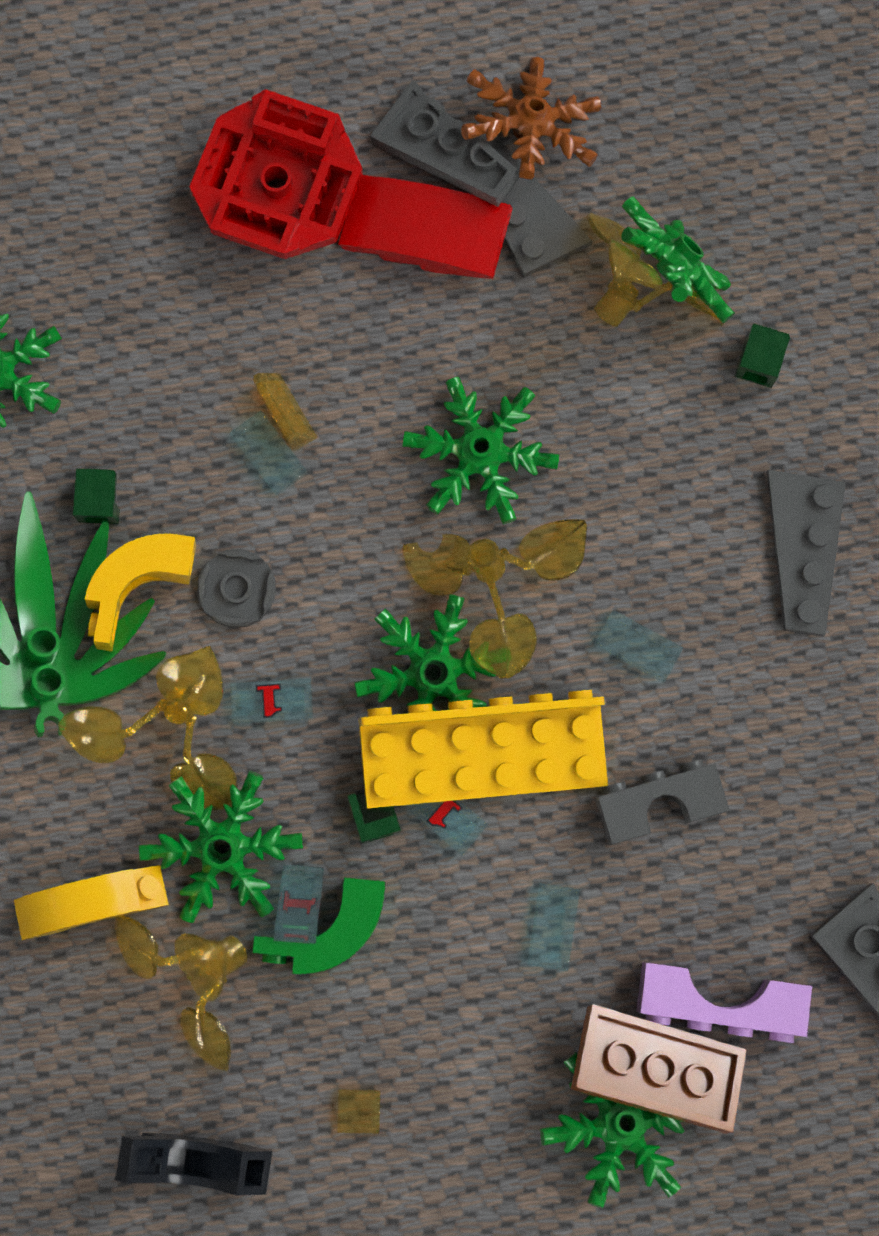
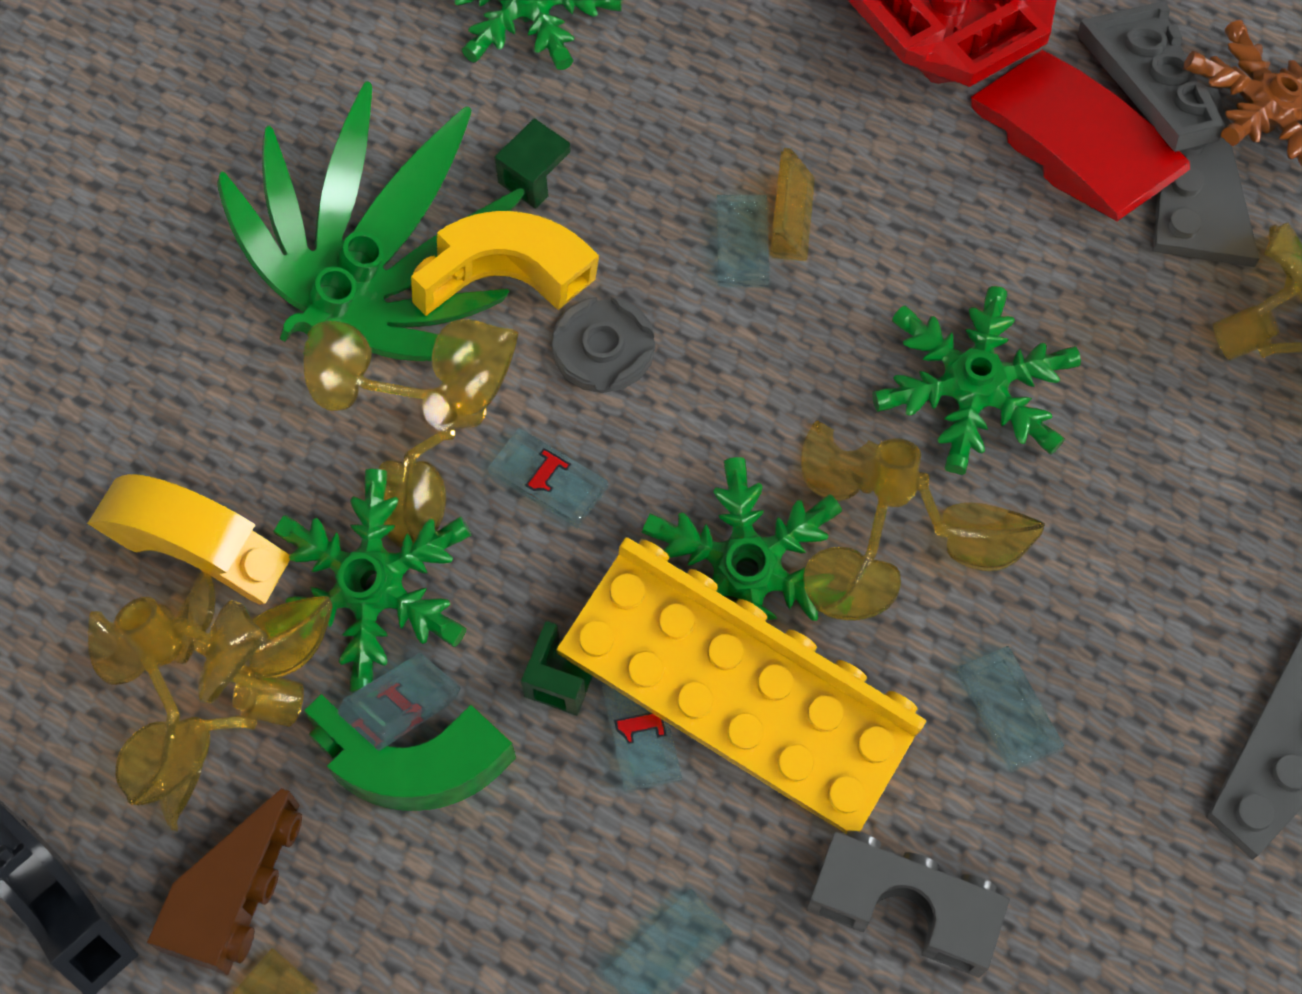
camera: 40 degrees right, 15 degrees down
(200, 1038) = (148, 635): none -> clear yellow plant
(288, 1091) = (216, 898): none -> reddish brown slope

